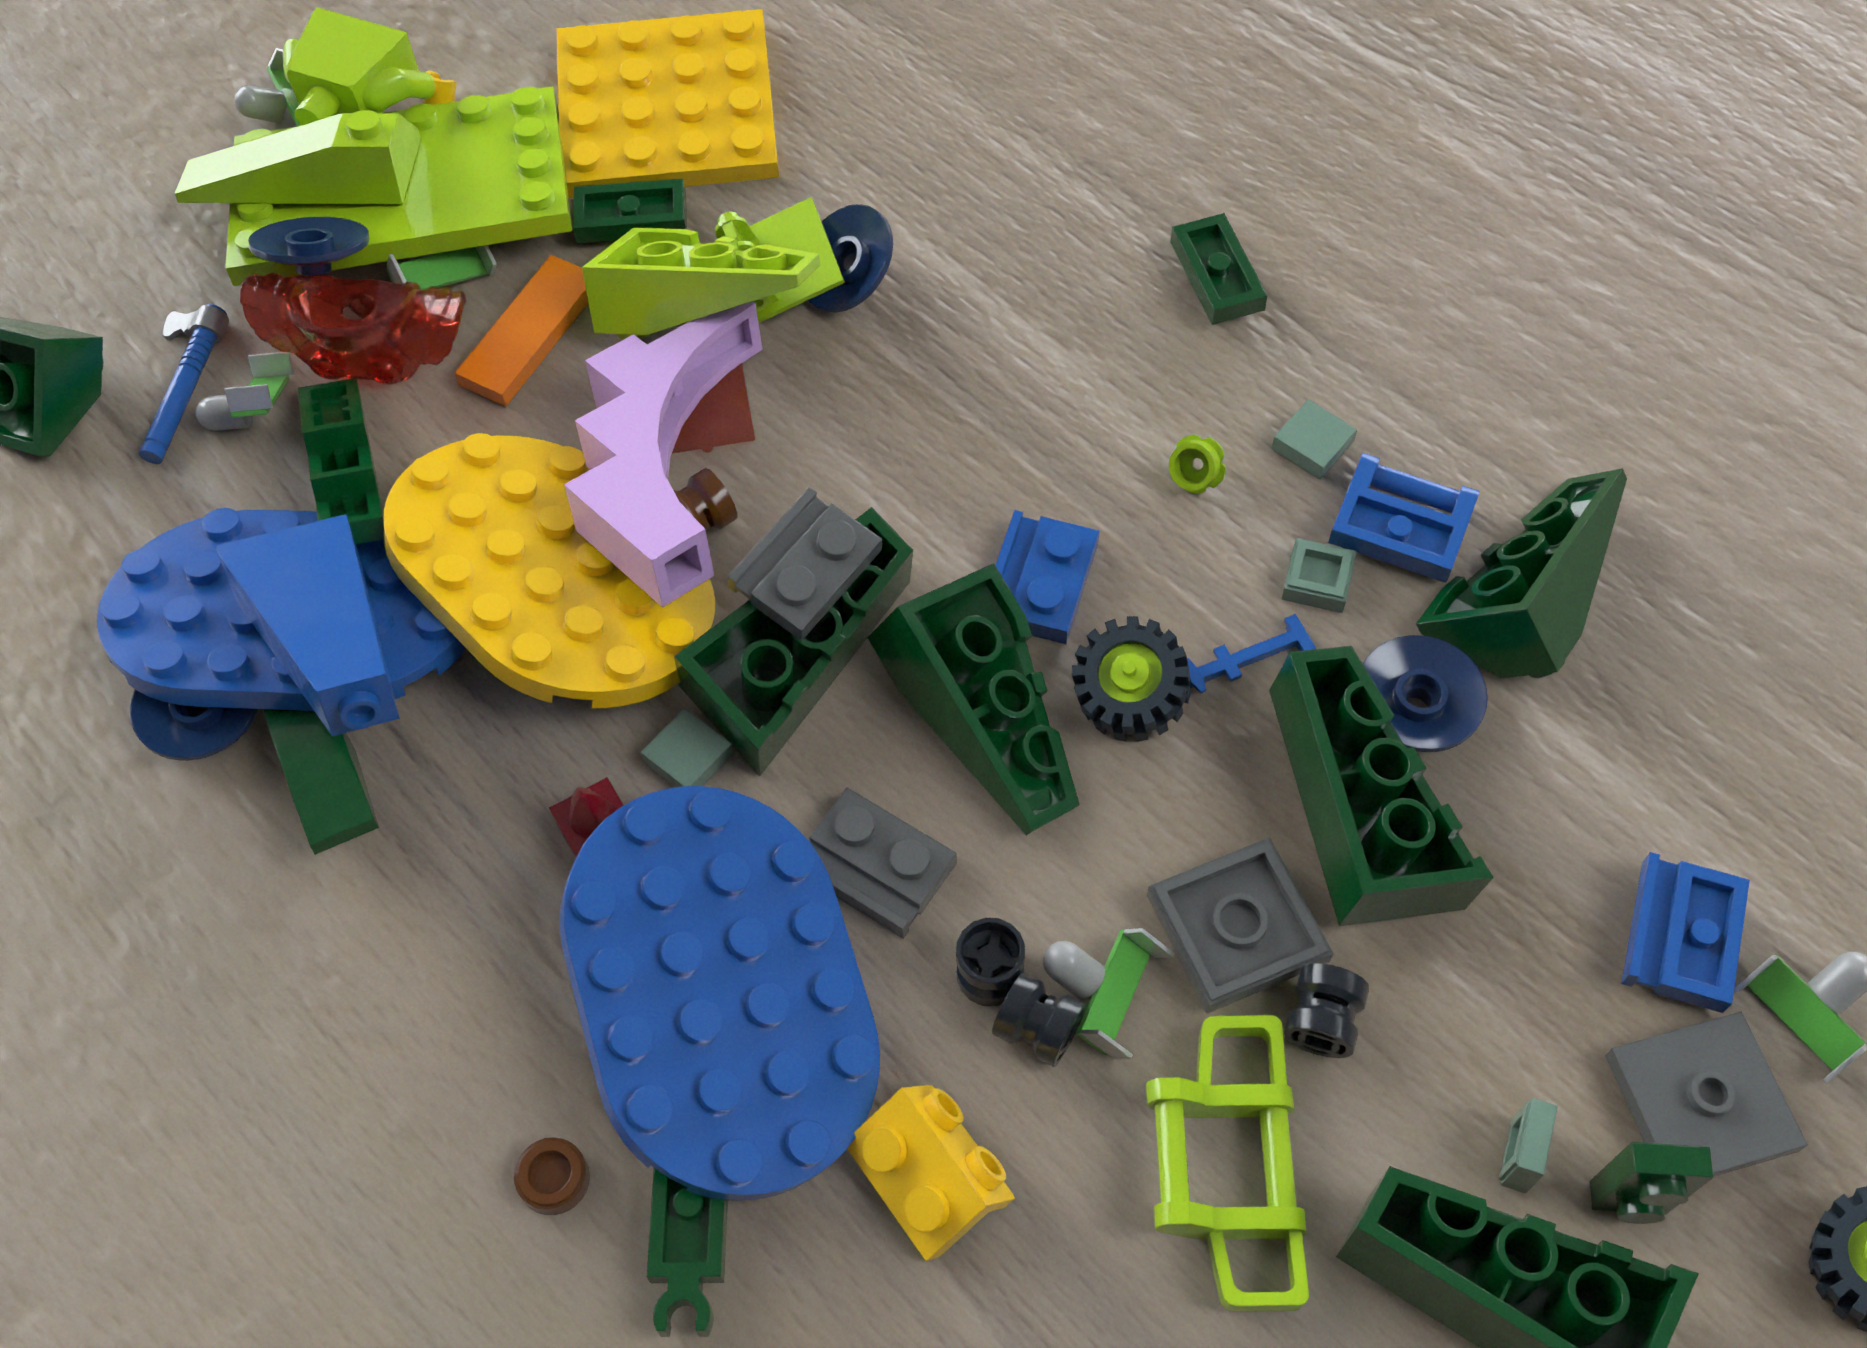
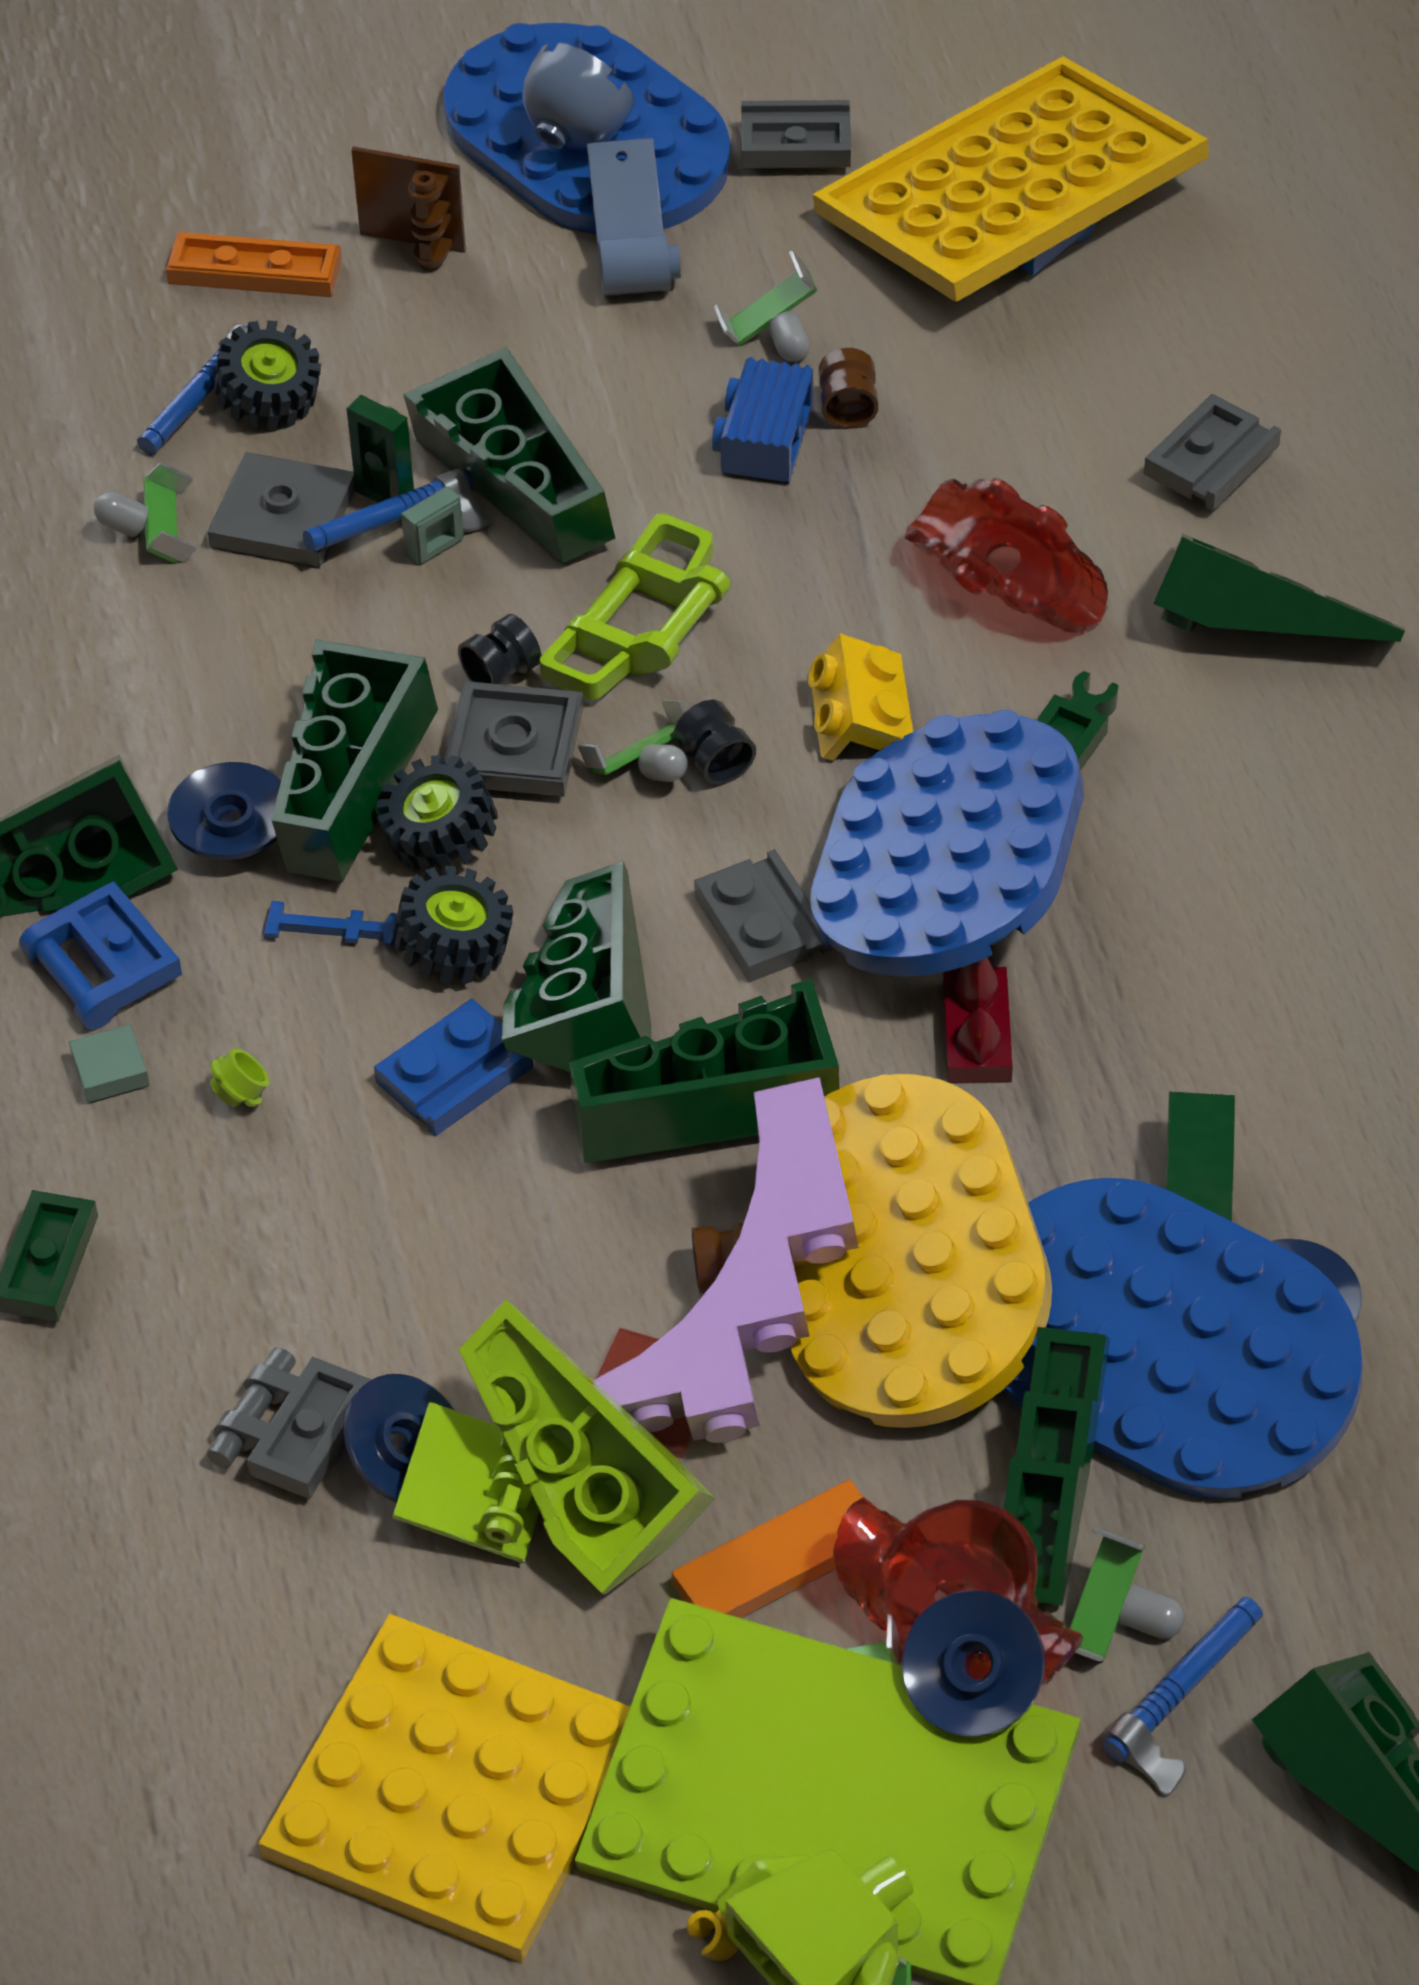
camera: 150 degrees left, 10 degrees down
(317, 618) = (1140, 1233): blue slope -> none
(328, 161) = (893, 1791): lime wedge -> none
(551, 1176) = (1146, 826): reddish brown tile -> none
(614, 209) = (585, 1634): dark green plate -> none
(687, 751) = (866, 1056): sand green tile -> none
(805, 563) = (675, 1075): dark grey plate -> none
(926, 247) = (304, 1432): none -> dark grey plate
(991, 946) = (724, 791): black wheel -> none
(1235, 784) = (437, 813): none -> black wheel
(1319, 575) = (215, 954): sand green tile -> none
(1589, 1146) = (391, 509): none -> blue piece
(1686, 932) = (194, 589): blue plate -> none

